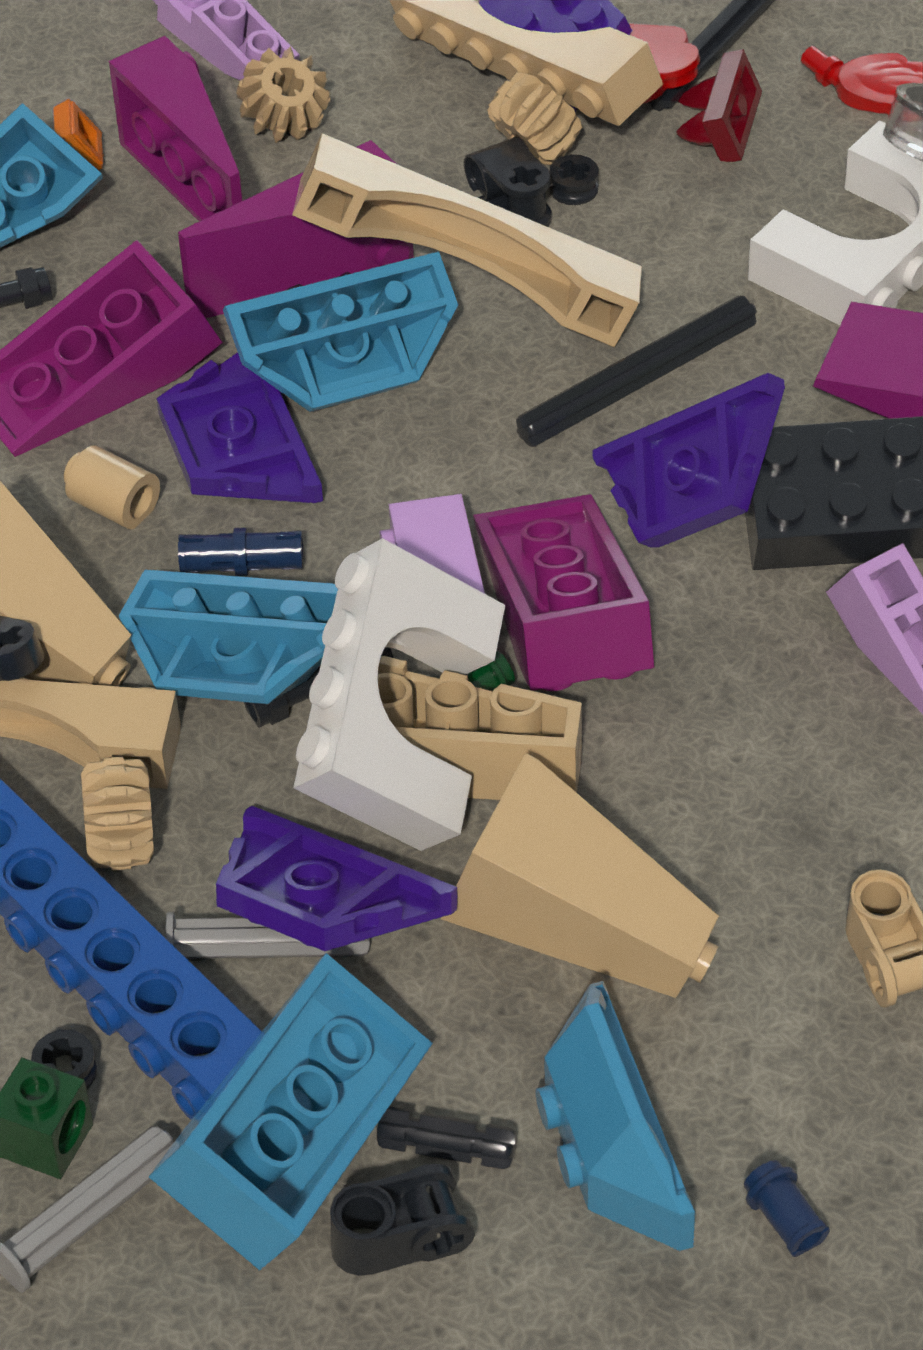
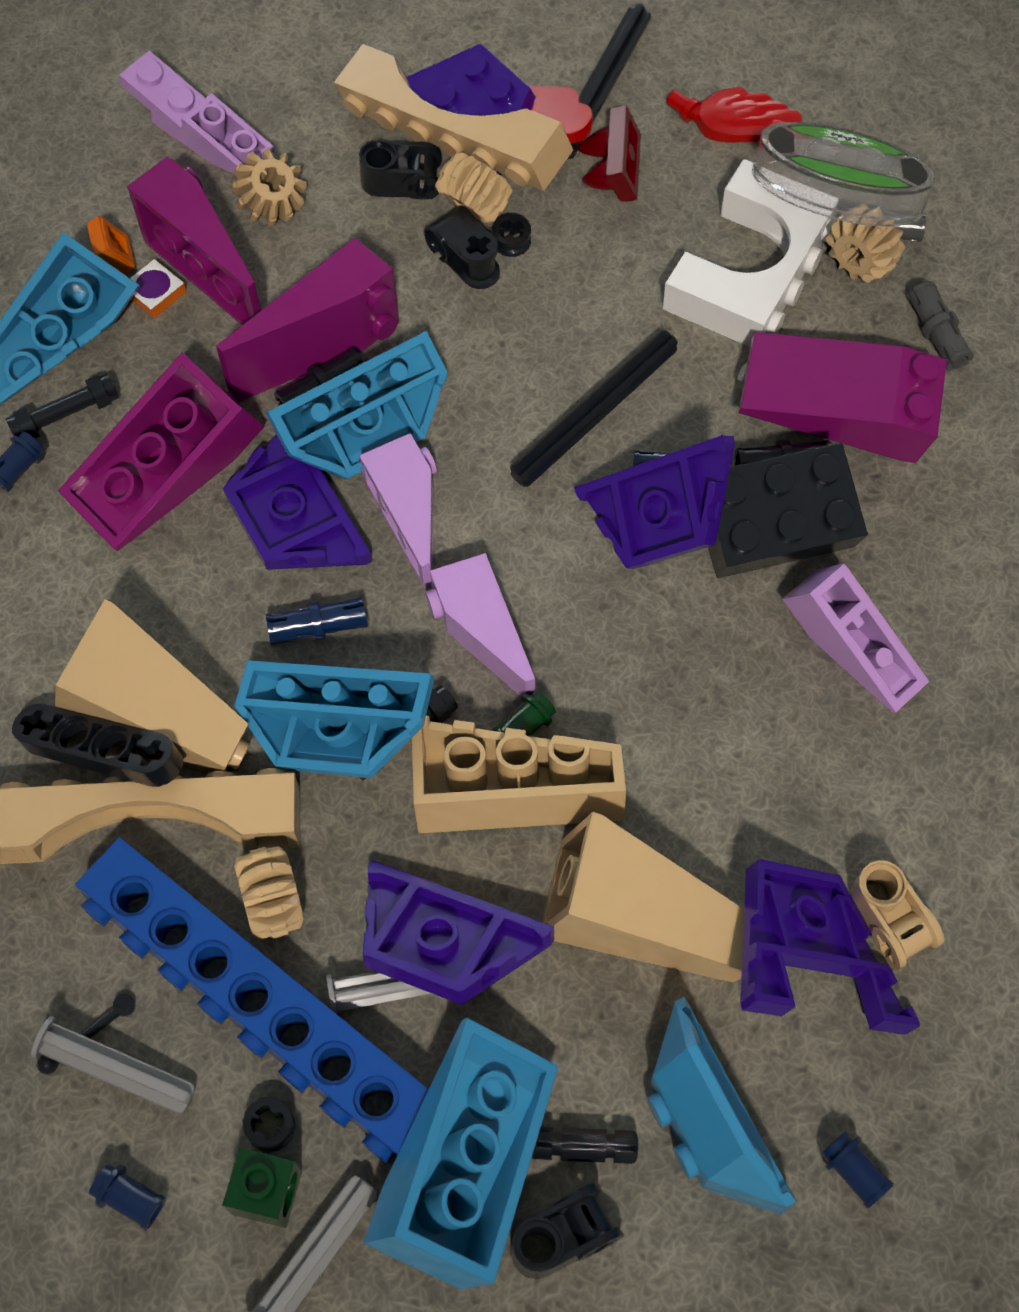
camera: 10 degrees left, 15 degrees up
(111, 486) = (201, 575): tan brick -> none
(123, 191) = (157, 288): none -> tile
(350, 746) = (449, 820): white arch -> none
(376, 198) = (365, 298): tan arch -> none
(378, 428) = (403, 489): none -> lavender slope
(444, 94) = (396, 169): none -> black piece
(566, 593) = (579, 624): magenta slope -> none
(788, 929) = (810, 924): none -> dark purple wing

